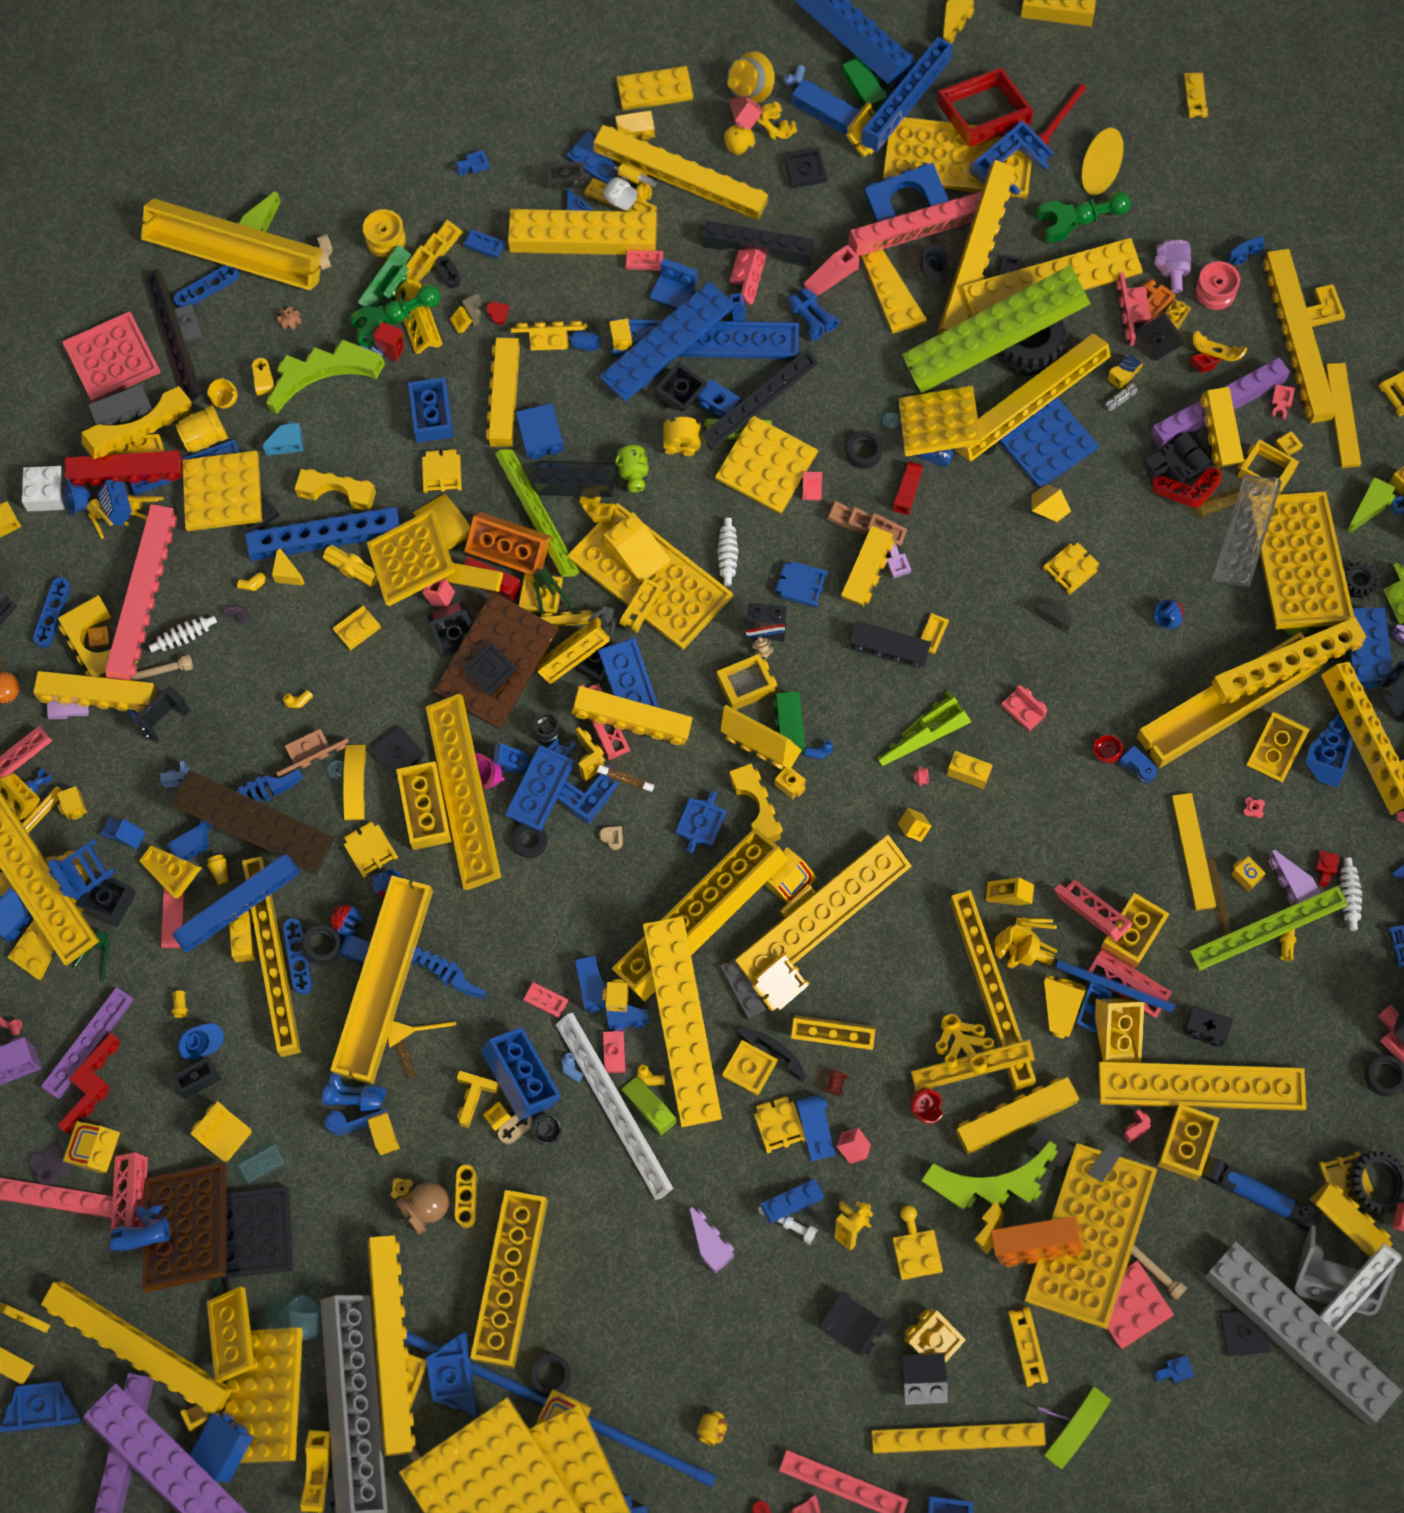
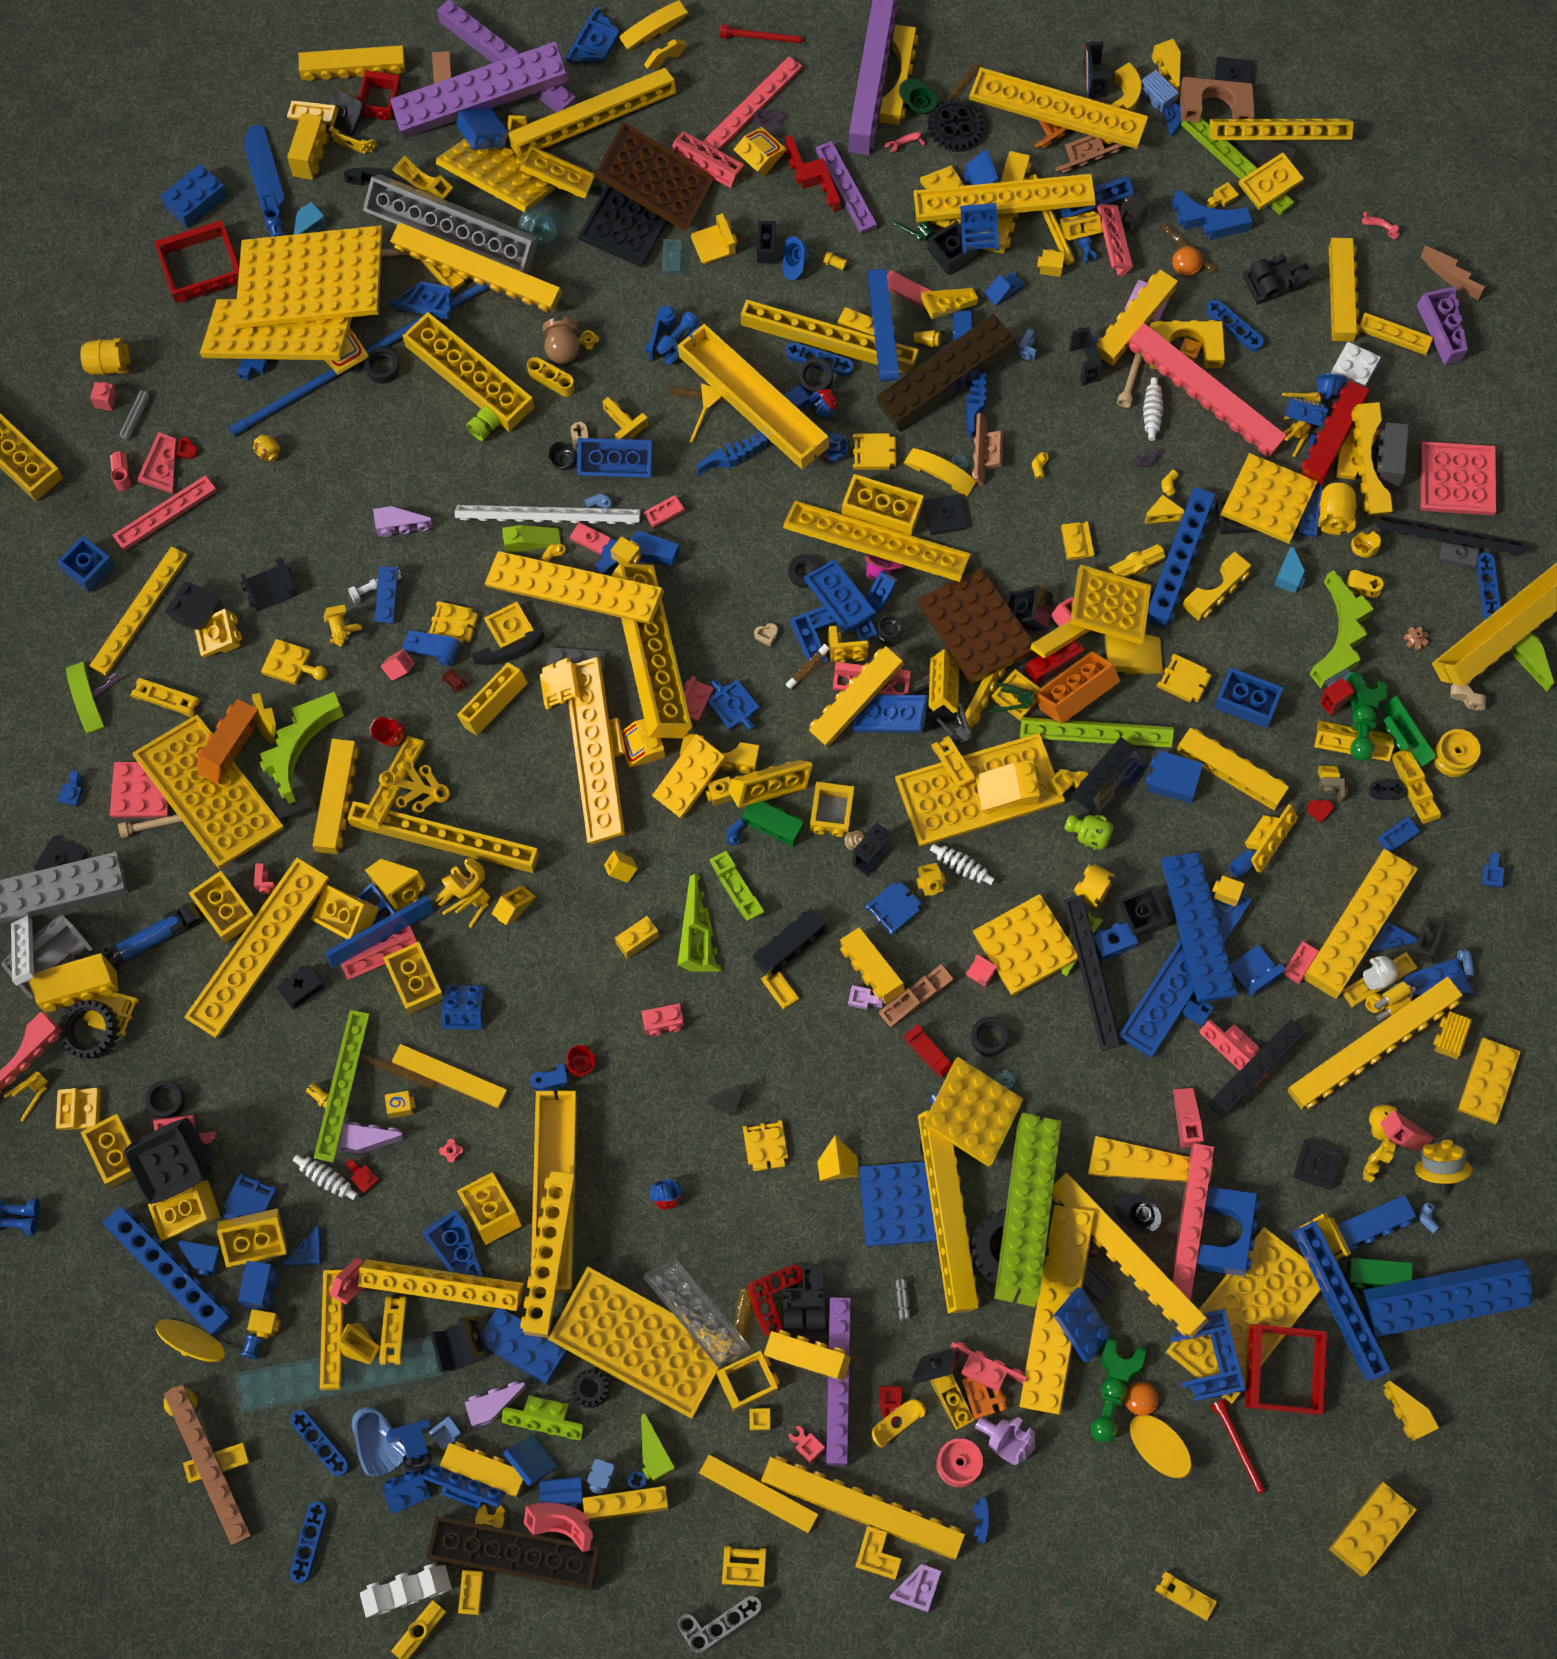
camera: 120 degrees right, 0 degrees up
(133, 1237) = (666, 136): blue piece -> none
(383, 1133) = (635, 342): yellow slope -> none
(490, 669) = (966, 610): black plate -> none
(497, 1116) = (596, 428): yellow plate -> none
(556, 1227) = (483, 423): none -> lime wheel
(563, 147) = (1466, 957): none -> medium blue arm
(709, 857) = (696, 697): none -> coral bracket
(759, 565) = (930, 879): none -> yellow brick
(796, 812) = (689, 776): none -> yellow plate
(816, 328) = (1139, 1082): blue piece -> none
(869, 717) = (736, 887): none -> lime slope
(921, 776) = (658, 898): coral plate -> none
(1053, 253) = (1082, 1324): none -> blue plate
(1074, 193) = (1141, 1398): none -> orange hat
(1091, 913) = (451, 946): coral fence -> none
(1105, 1162) = (251, 834): dark grey sticker -> none
(1124, 371) = (925, 1319): yellow leg -> none
(1126, 877) = (462, 1007): none -> blue bracket
(1326, 267) = (918, 1588): none -> lavender wing

